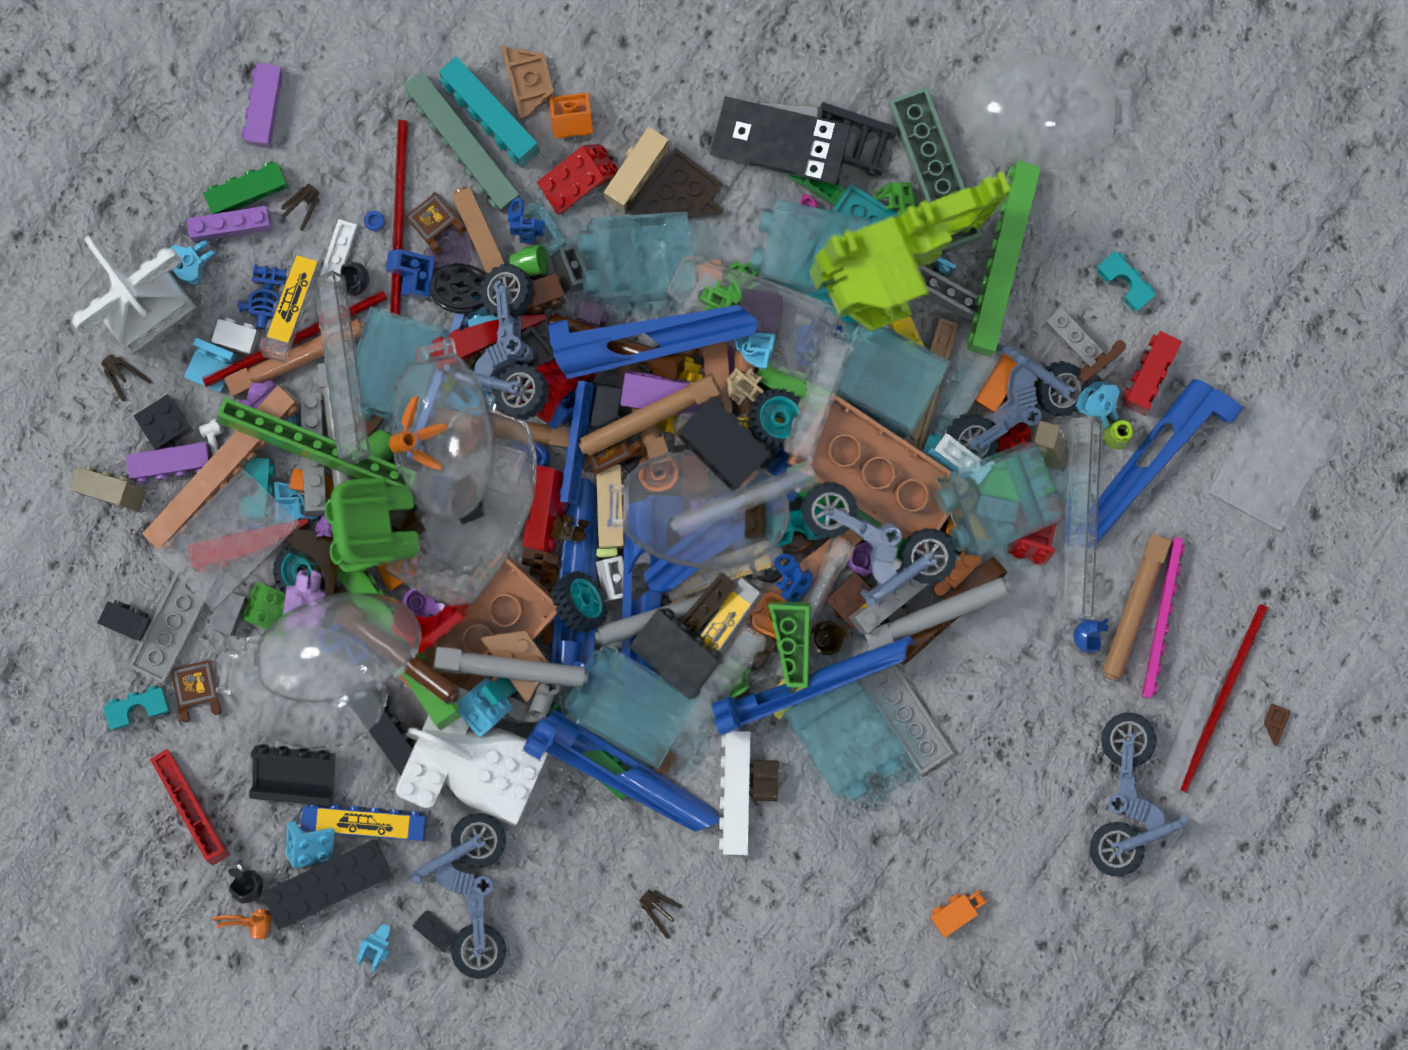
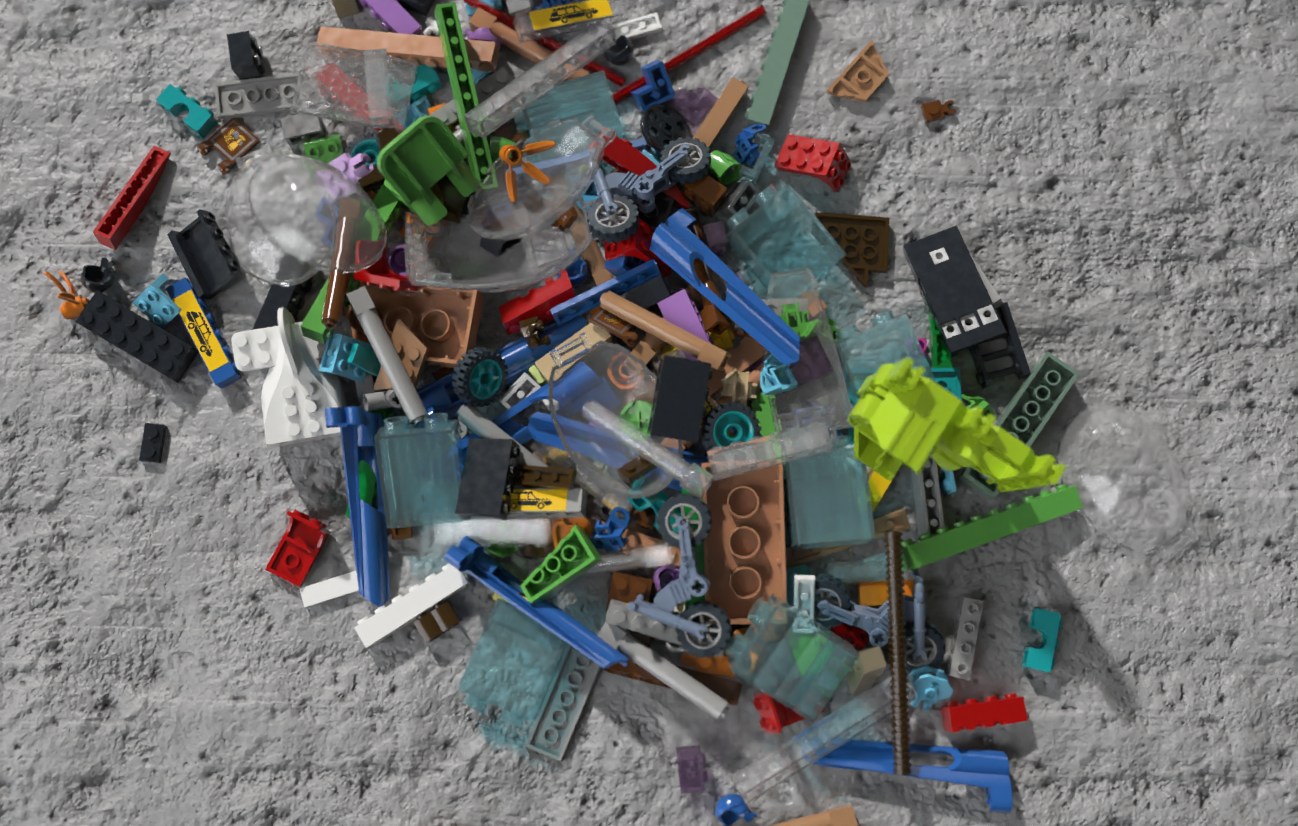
camera: 50 degrees right, 5 degrees down
(249, 518) = (379, 88): none -> clear brick
(374, 221) = (673, 39): blue tile -> none
(375, 947) = (109, 405): medium azure hinge -> none
(432, 219) = (705, 78): reddish brown flag -> none
(466, 884) = (200, 440): piece -> none
(489, 112) = (814, 62): teal brick -> none
(547, 566) = (494, 331): reddish brown piece -> none
(571, 115) = (856, 125): orange slope -> none
(605, 36) = (935, 111): none -> reddish brown plate
(619, 860) = (298, 548): none -> red bracket
(636, 169) = (851, 197): tan brick -> none
(651, 901) = (279, 596): dark brown plant -> none
(673, 855) = (329, 589): none -> white tile
(709, 488) = (637, 414): none -> bright green tile
(828, 637) = (586, 594): dark brown hat -> none
(1040, 654) = (690, 769): none -> clear purple brick
(1054, 408) = (898, 656): none -> dark brown piece
(1101, 361) = (964, 664): reddish brown plate -> none
(1112, 437) = (924, 720): lime plant -> none

